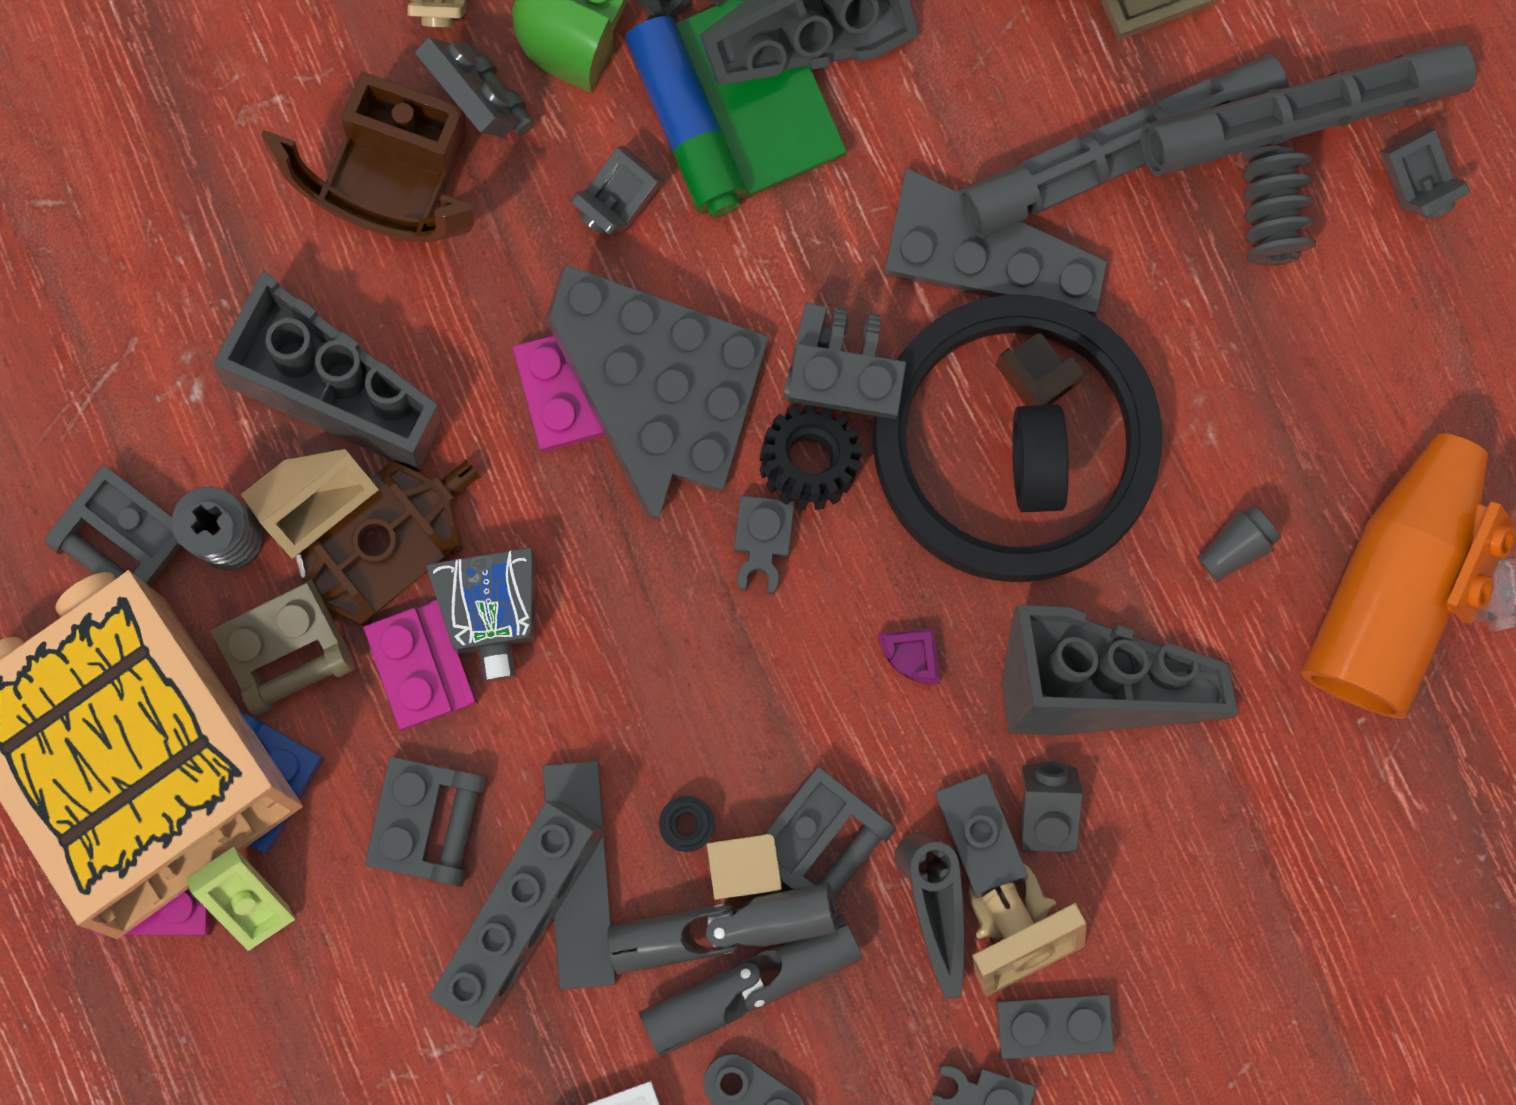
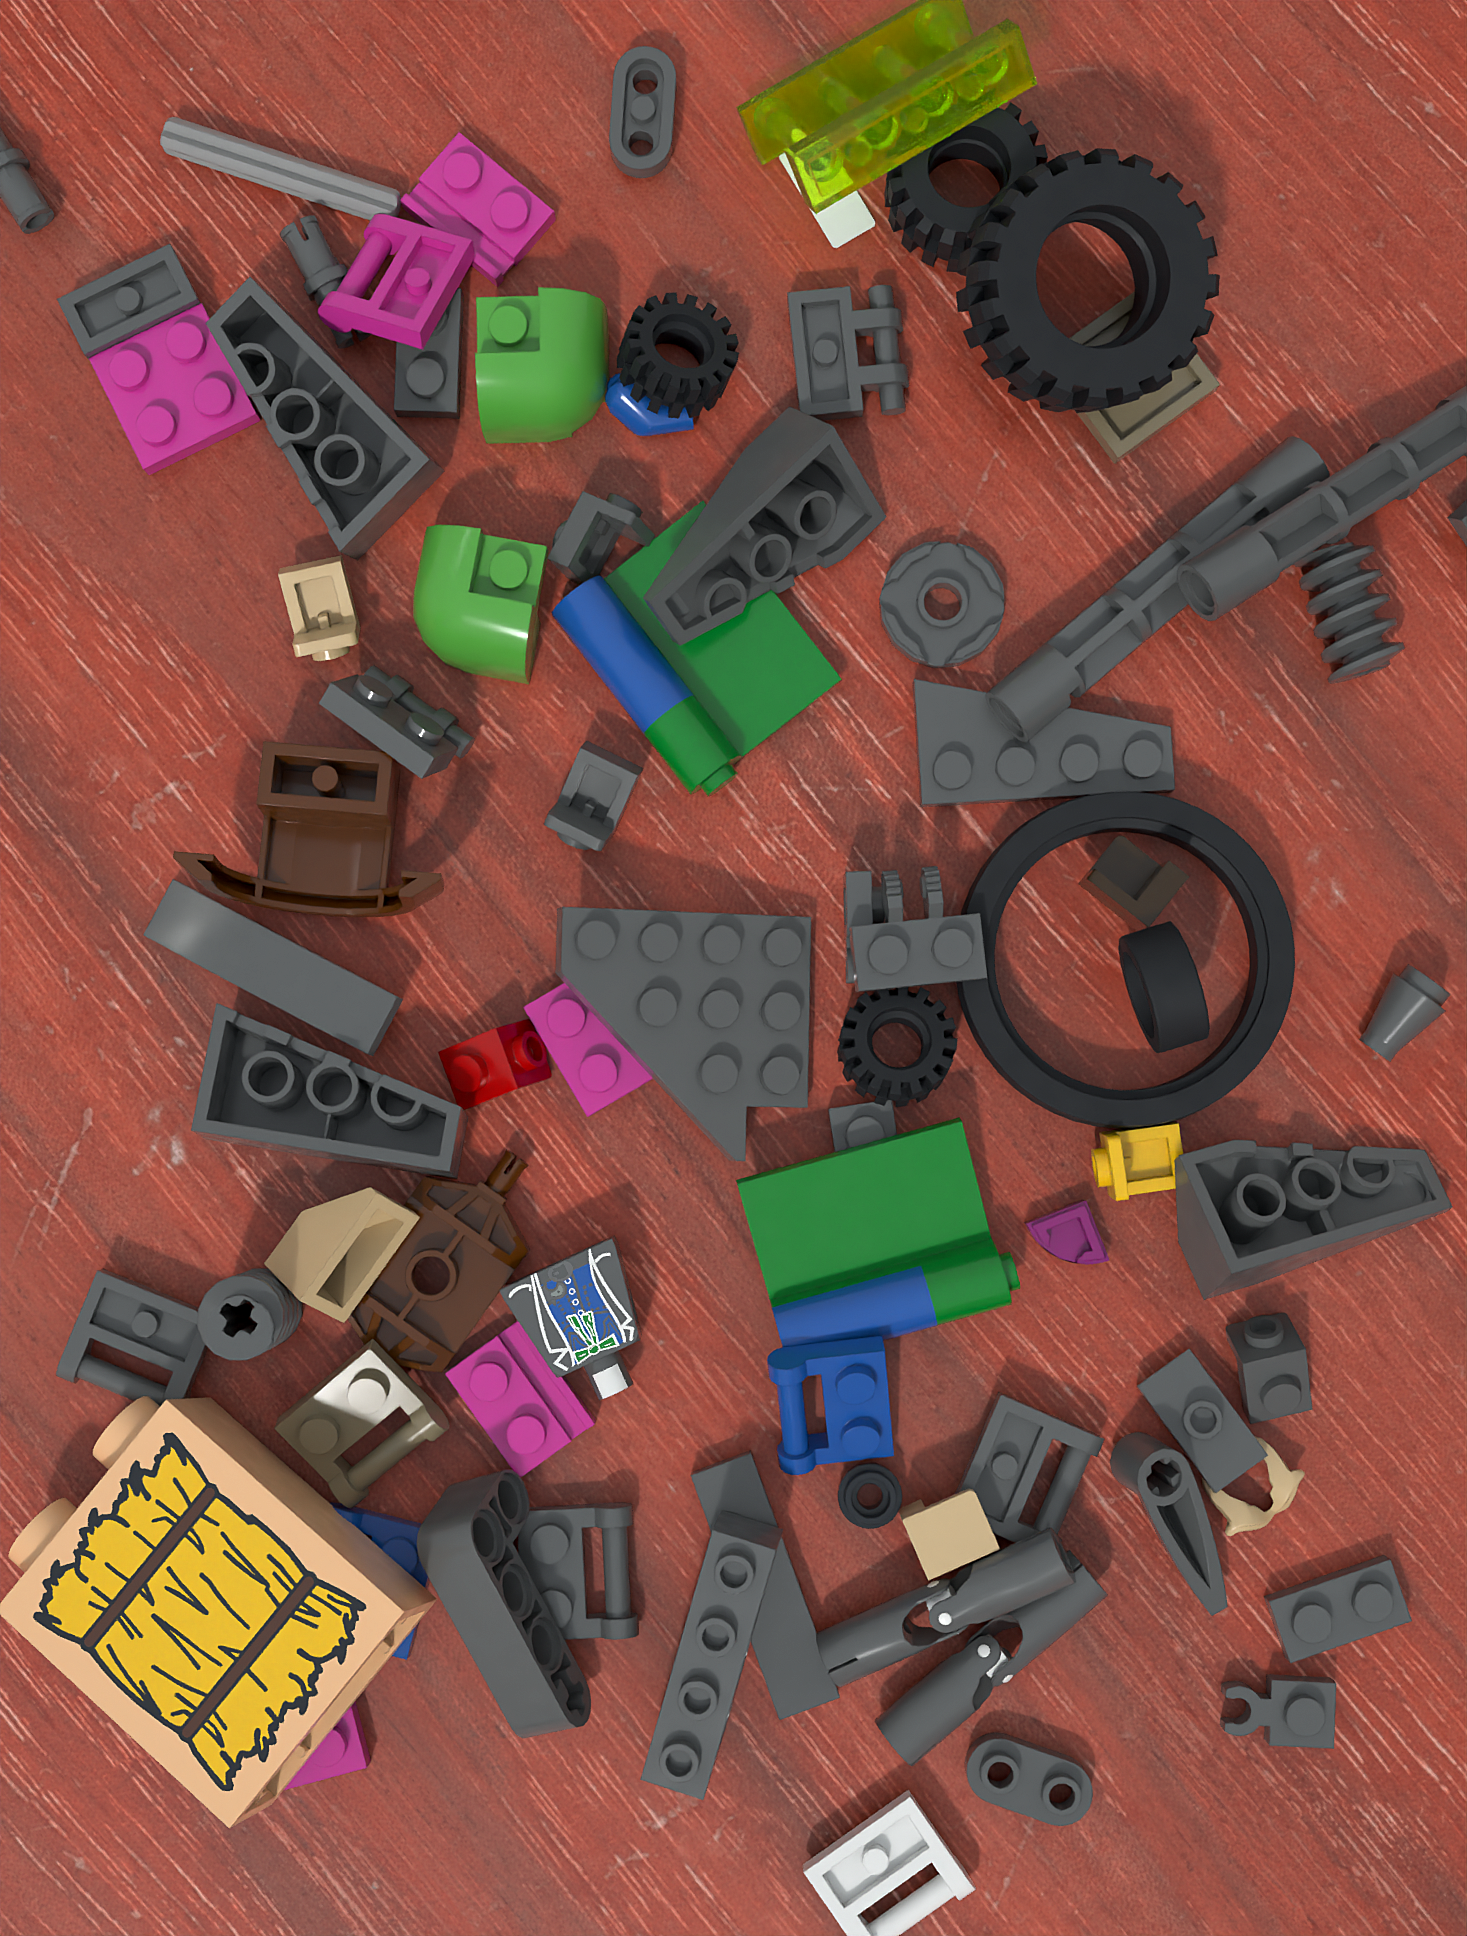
camera: 15 degrees left, 5 degrees up
(240, 898) = (396, 1723): yellowish green plate -> none
(318, 259) = (273, 967): none -> dark grey slope
(352, 826) = (498, 1608): none -> dark grey beam
(477, 385) = (495, 1063): none -> red bracket
(693, 740) = (853, 1401): none -> blue plate
(748, 612) = (877, 1239): none -> green door
(937, 145) = (933, 640): none -> dark grey tile
(984, 604) = (1137, 1160): none -> yellow bracket
(1025, 944) = (1285, 1533): tan tile -> none

